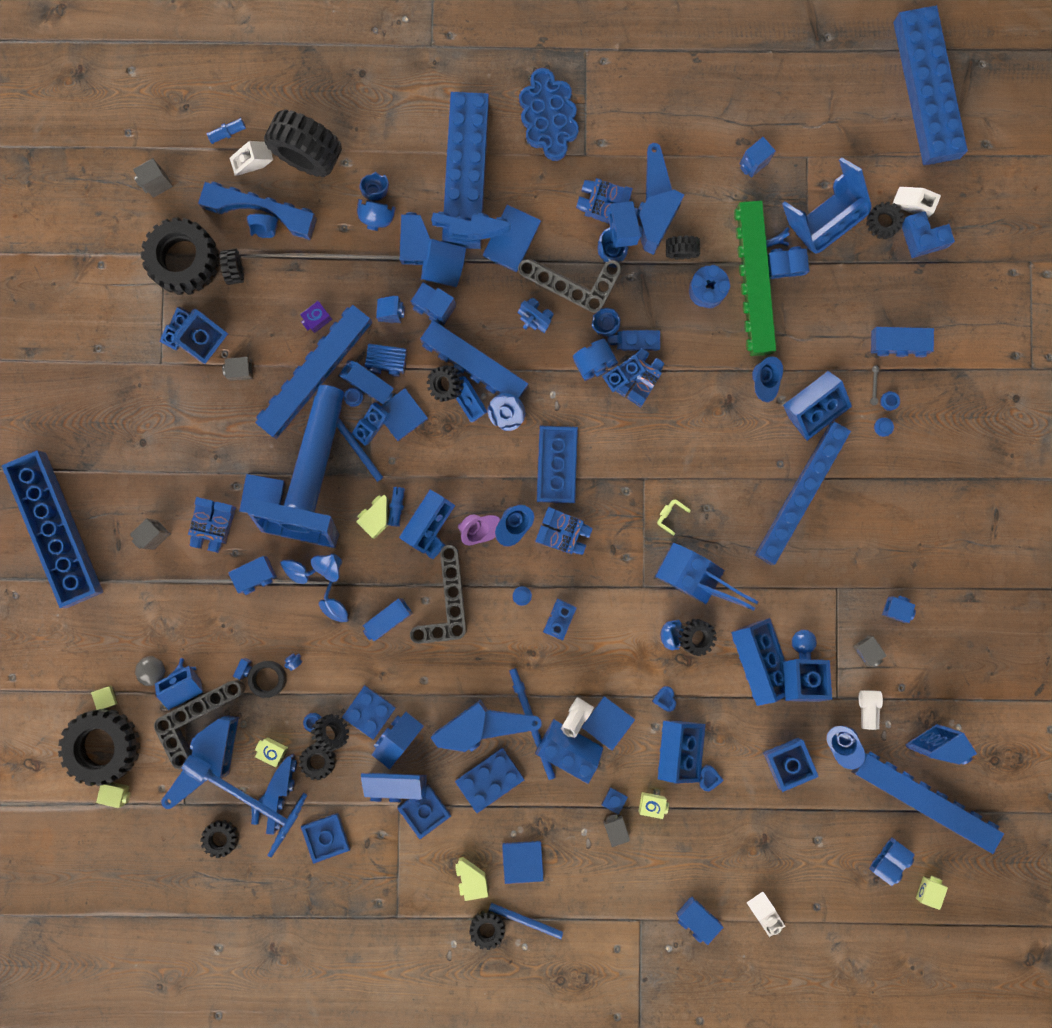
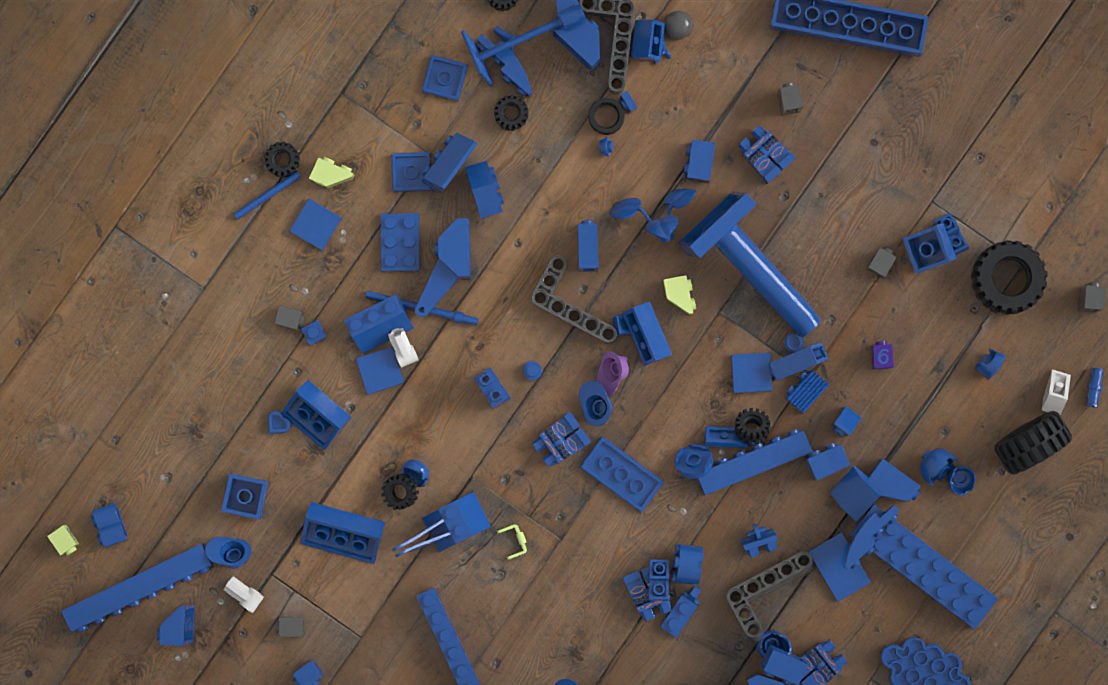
camera: 125 degrees right, 0 degrees up
(221, 200) = (1036, 343): blue arch -> none
(232, 266) = (971, 314): black tyre -> none
(261, 489) = (765, 213): blue tile -> none
(270, 751) = (545, 80): yellowish green brick -> none
(309, 720) = (545, 130): blue plate -> none
(313, 372) = (836, 323): blue brick -> none
(320, 733) = (527, 147): black tyre -> none
(359, 451) = (744, 317): blue bar -> none
(369, 712) = (522, 181): blue plate -> none
(370, 424) = (760, 341): blue slope -> none
(396, 506) = (677, 316): blue pin -> none
(606, 322) = (713, 596): blue hair -> none
(653, 805) = (288, 361): yellowish green brick -> none
(664, 699) = (367, 431): blue tile -> none
(699, 920) = (171, 335): blue brick -> none
(766, 914) = (138, 393): white slope -> none
(805, 677) = (313, 561): blue brick -> none

